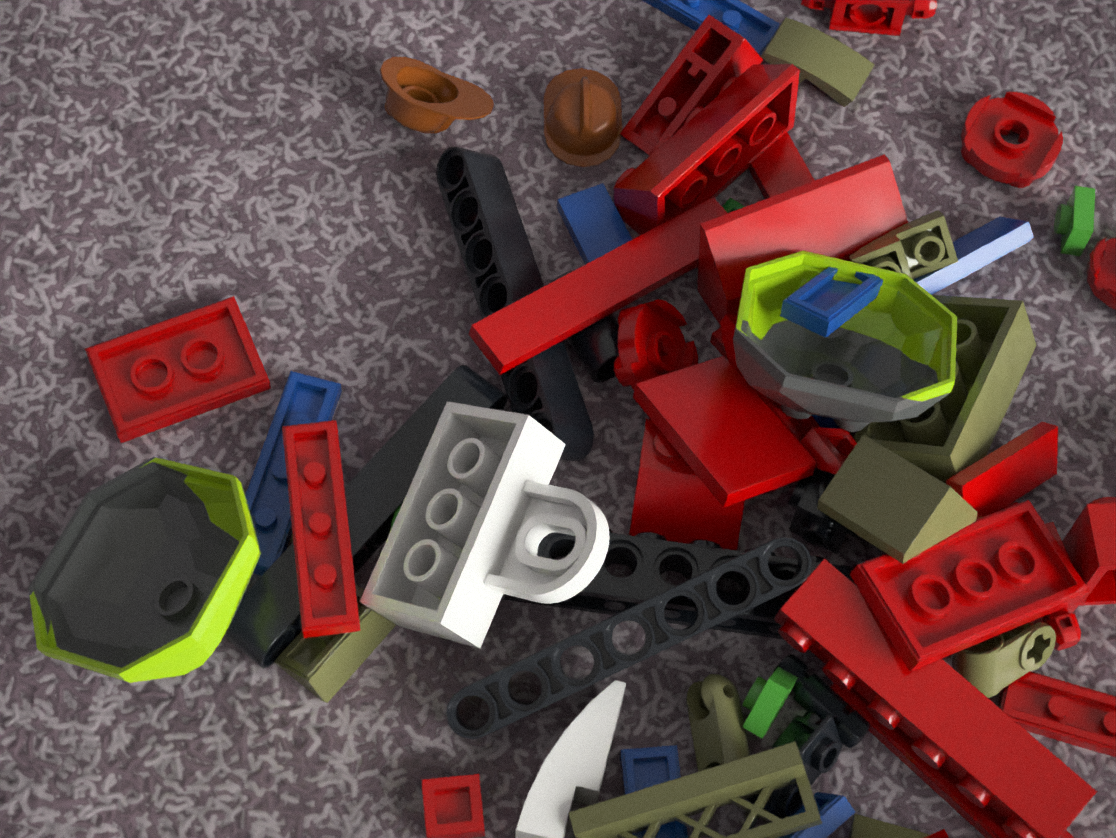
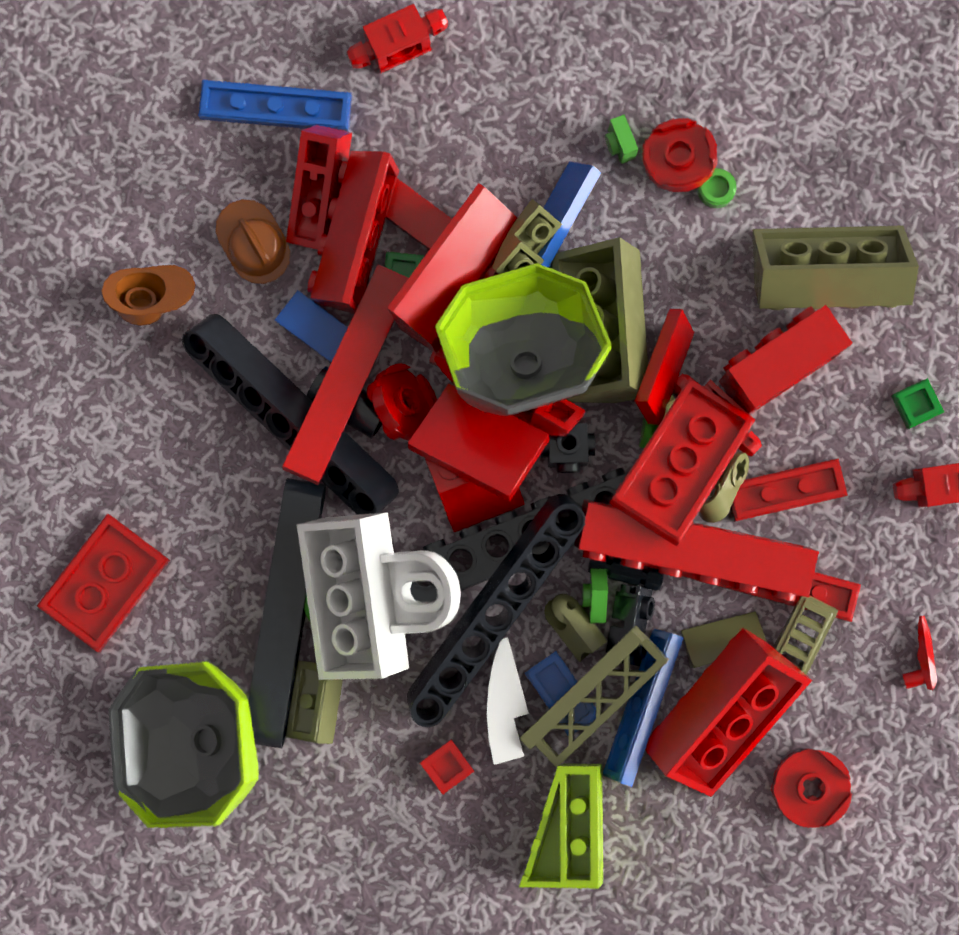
camera: 25 degrees left, 20 degrees up
(302, 402) = (214, 608): blue tile -> none
(320, 529) = (266, 647): red tile -> none
(820, 58) = (388, 109): olive slope -> none
(827, 304) = (498, 313): blue tile -> none
(893, 502) = (611, 437): olive slope -> none
(1006, 161) = (564, 82): red plate -> none

